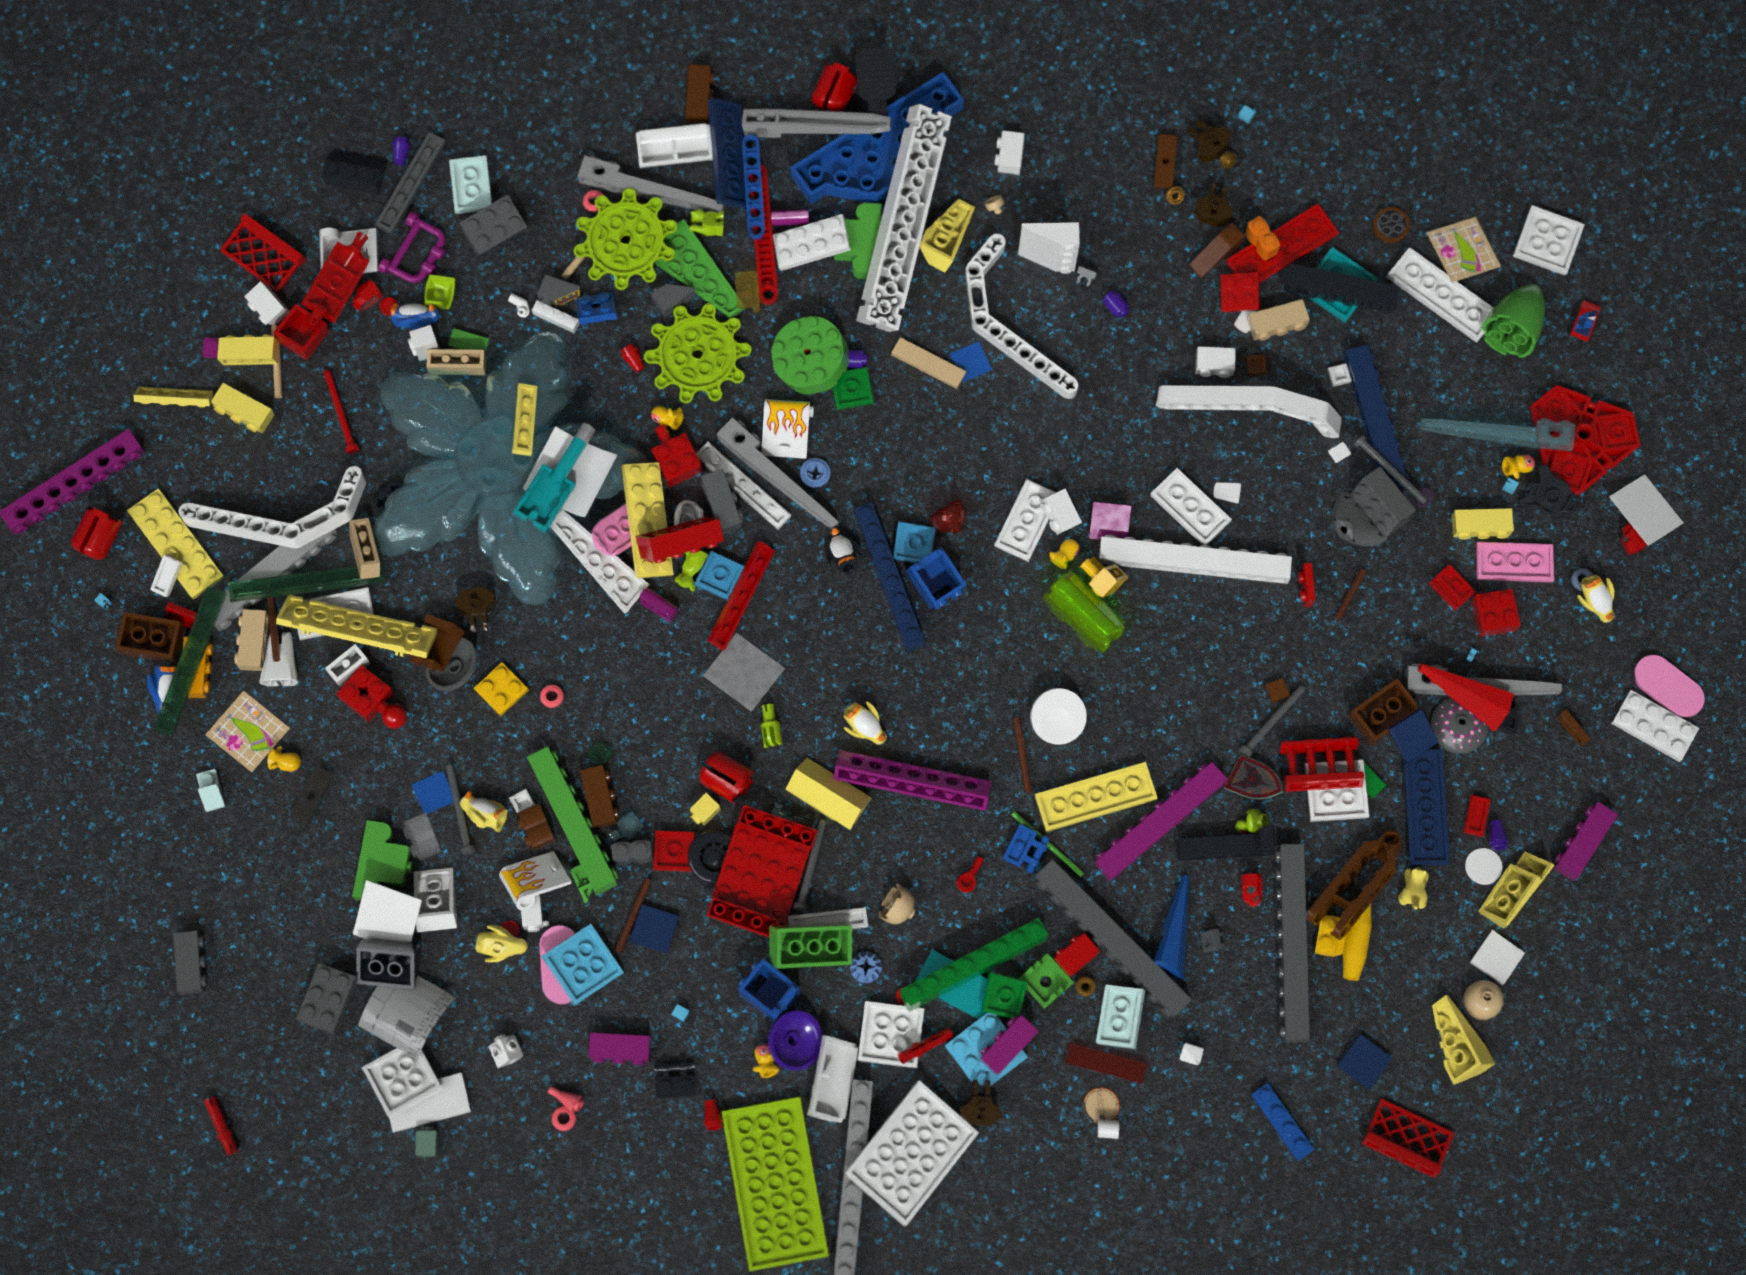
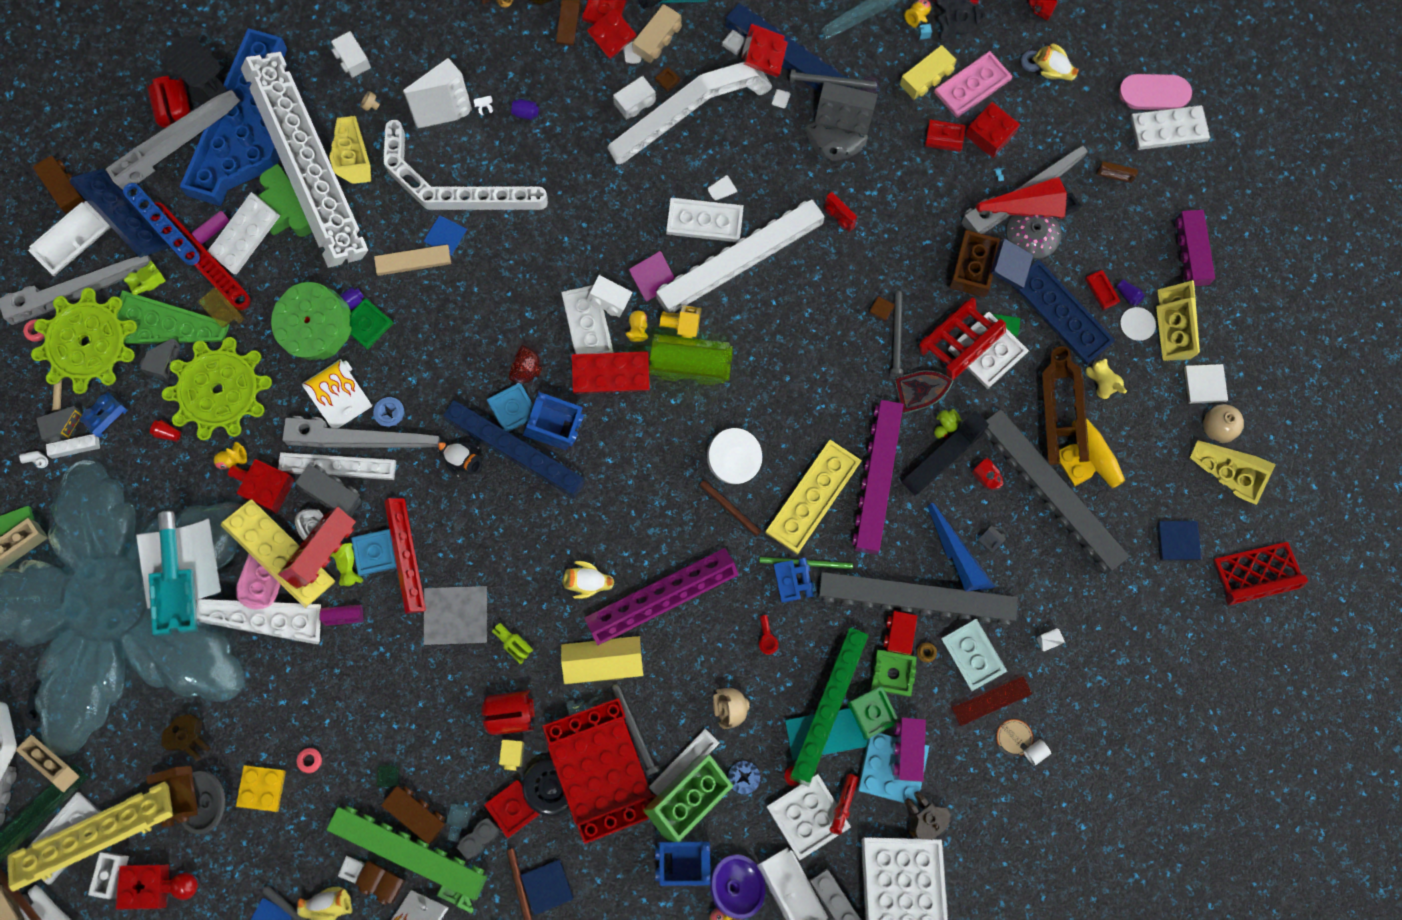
camera: 40 degrees left, 0 degrees up
(524, 419) = (104, 549): light yellow plate -> none
(1012, 574) = (610, 372): none -> red brick
(1282, 1122) = (1159, 637): blue plate -> none
(1350, 402) = (764, 50): none -> red bracket
(1350, 594) = (875, 196): copper bar -> none

